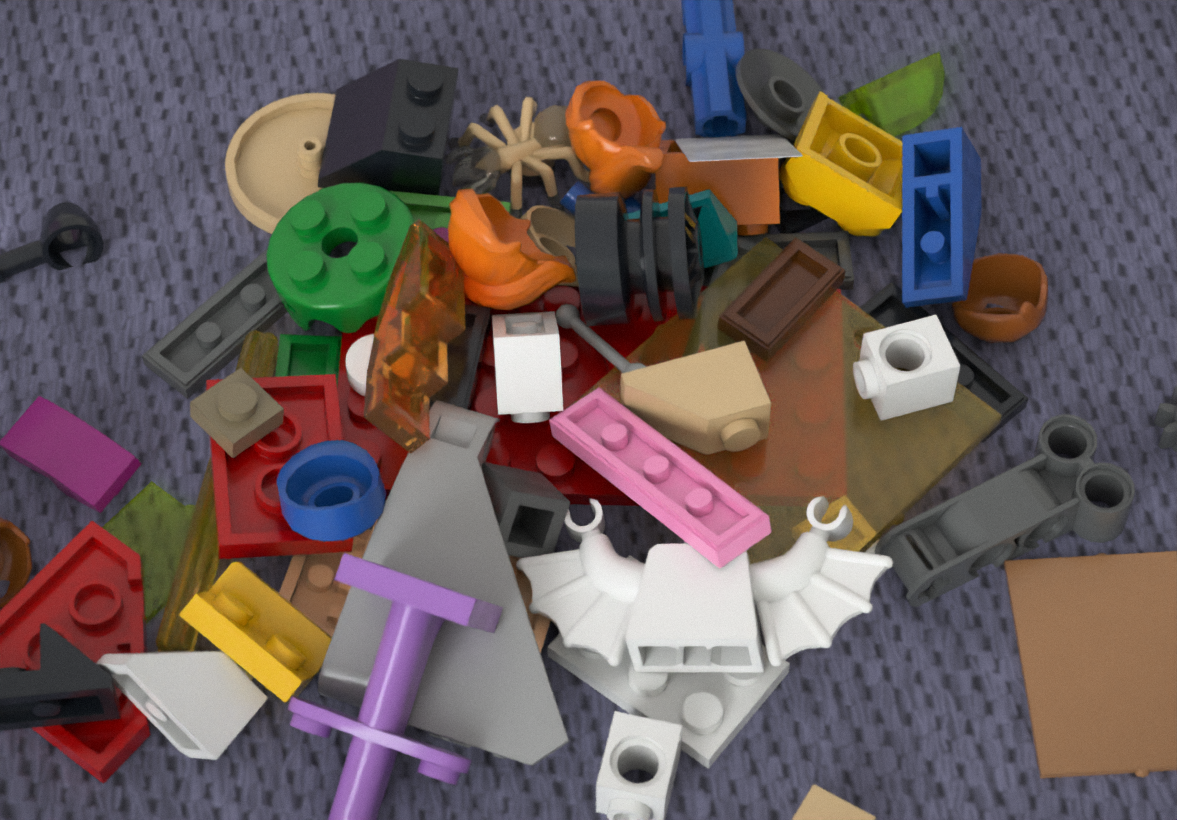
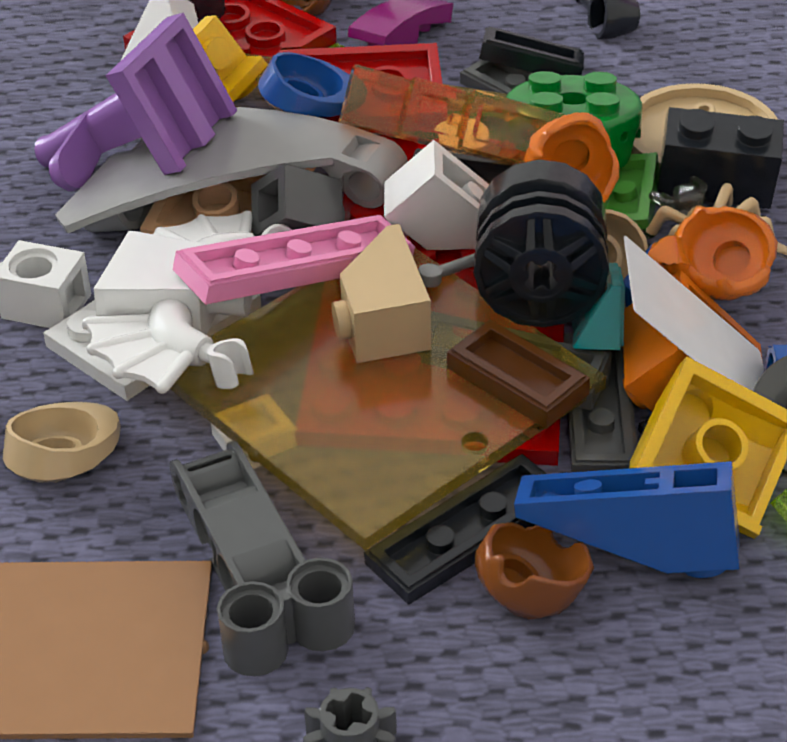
camera: 95 degrees right, 15 degrees down
(166, 313) = (530, 53): none -> black tile
(236, 412) = (397, 49): dark tan plate -> none
(863, 683) = (60, 440): none -> tan hat
(913, 346) = (410, 440): white brick -> none

